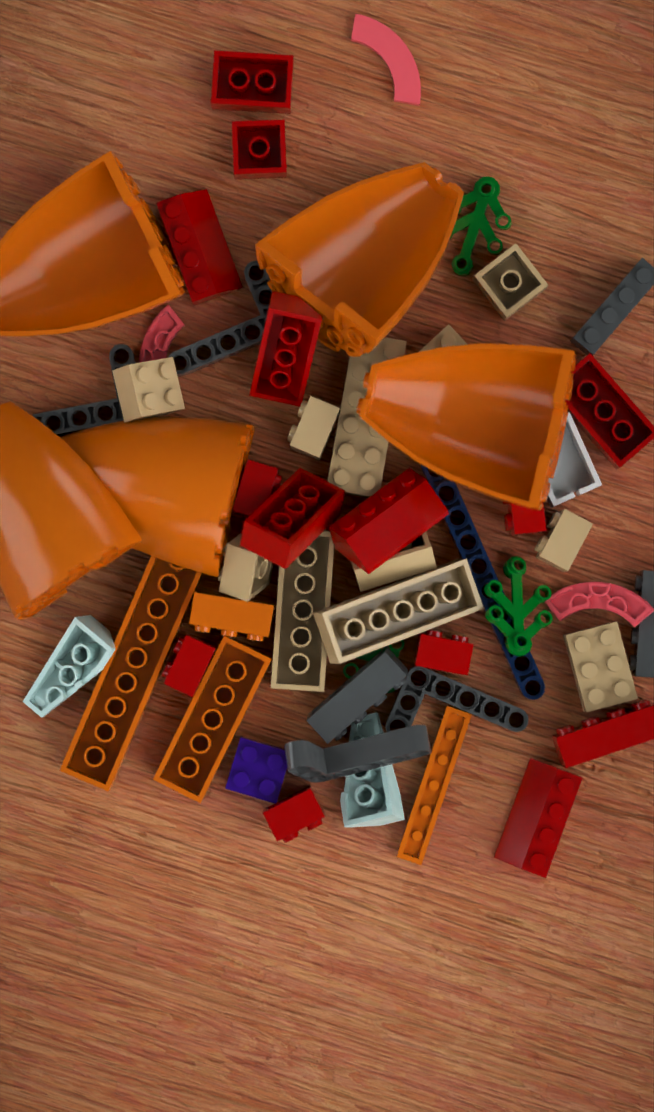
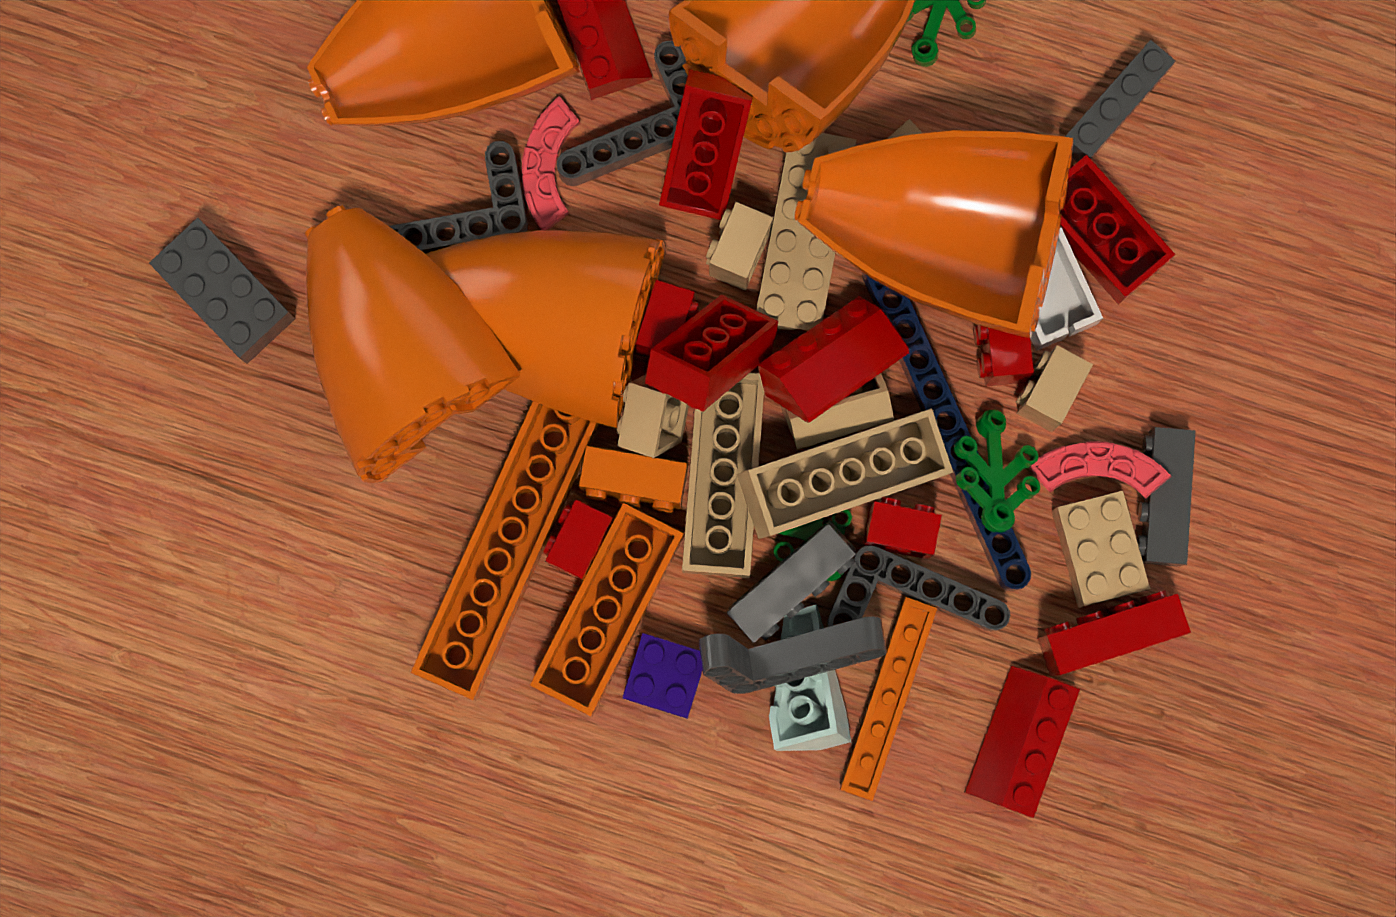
camera: 10 degrees right, 5 degrees down
(73, 663) = (432, 537): light aqua wedge -> none
(148, 389) = (532, 194): tan brick -> none
(294, 814) = (710, 732): red brick -> none
(510, 282) = (985, 70): tan brick -> none

